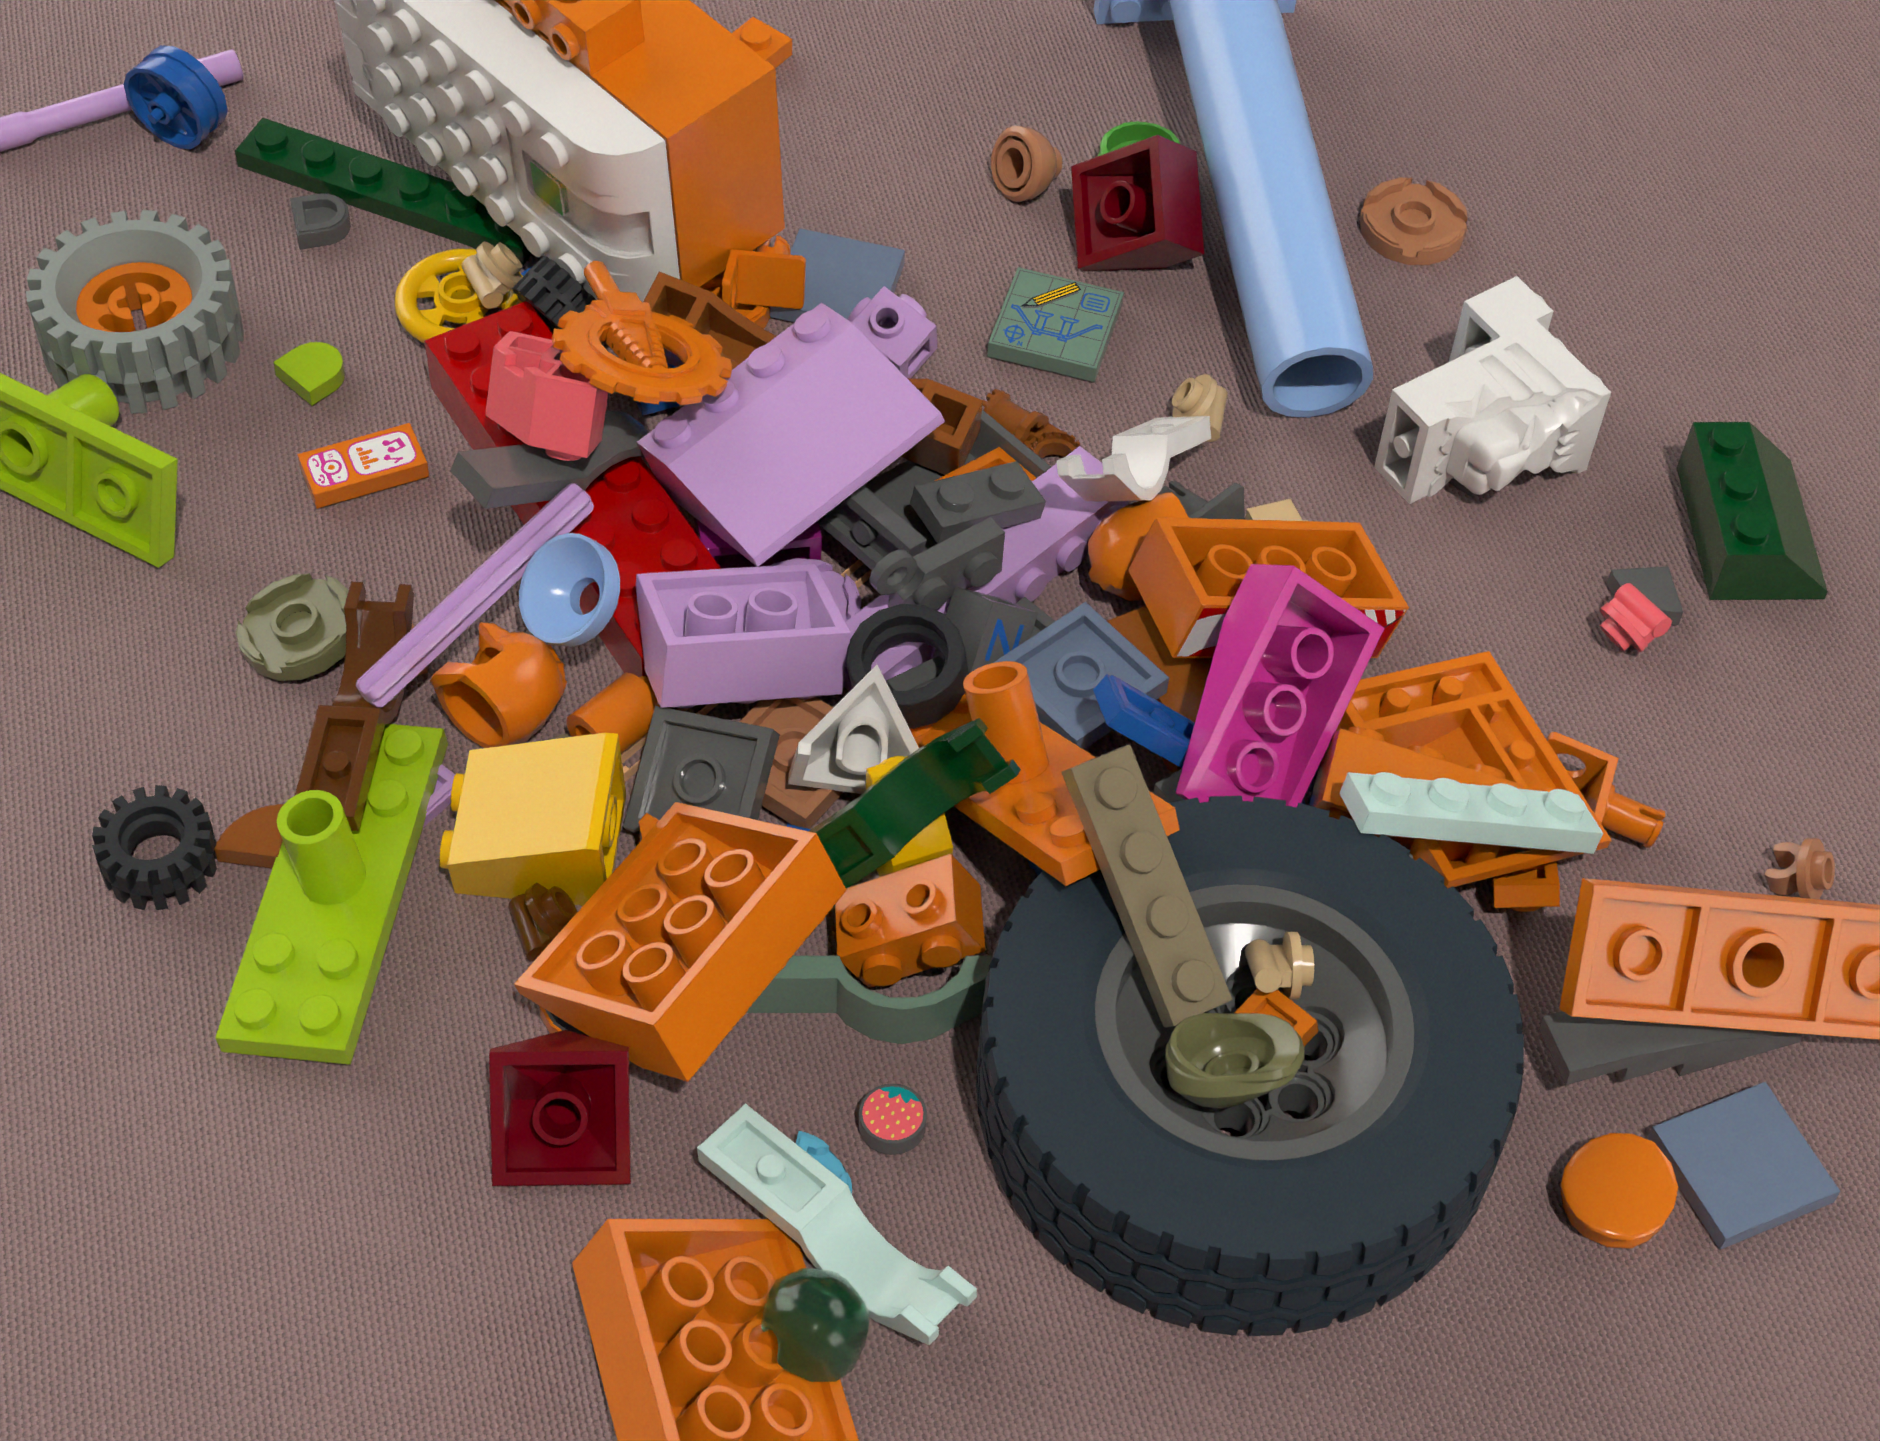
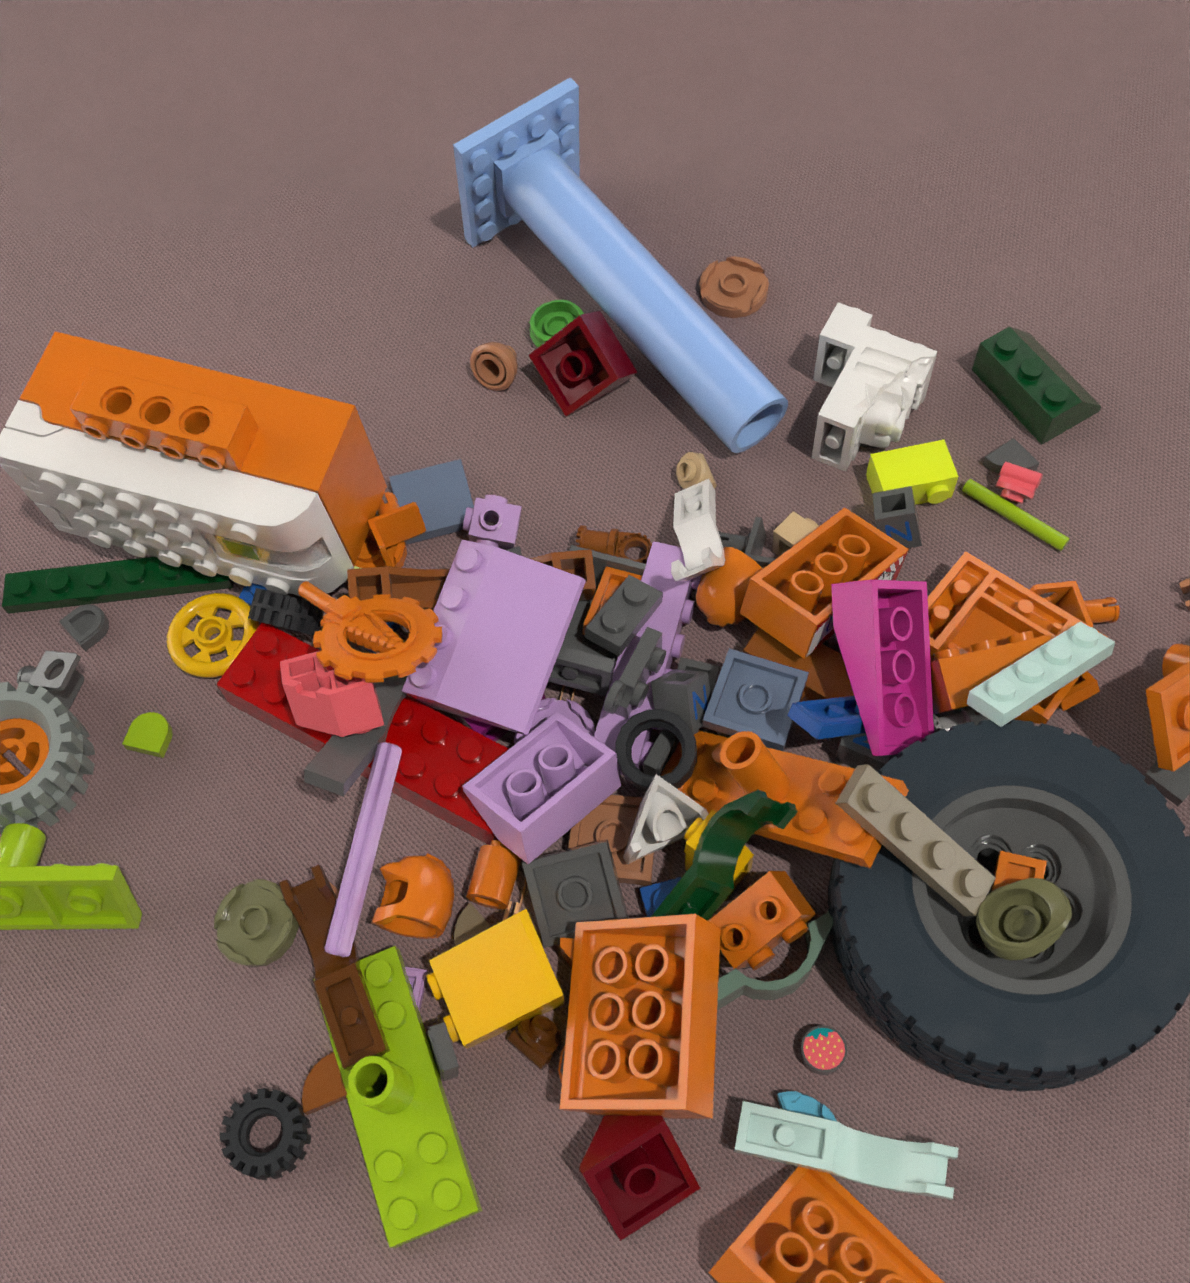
camera: 20 degrees left, 10 degrees up
(248, 249) = (56, 674): none -> dark grey bracket
(363, 465) = (223, 784): tile -> none
(421, 869) = (443, 1052): none -> dark grey tile
(492, 272) = (225, 610): tan plate -> none
(554, 585) = (411, 824): light blue piece -> none
(765, 41) = (283, 366): orange plate -> none
(817, 1324) = (876, 1223): clear green hair -> none
(1055, 324) = (578, 461): sand green tile -> none
(1281, 965) = (1005, 836): tan plate -> none
(1429, 574) = (897, 516): none -> dark grey brick
(1489, 542) = (922, 466): none -> neon yellow brick
(1606, 660) = (1015, 514): none -> lime bar

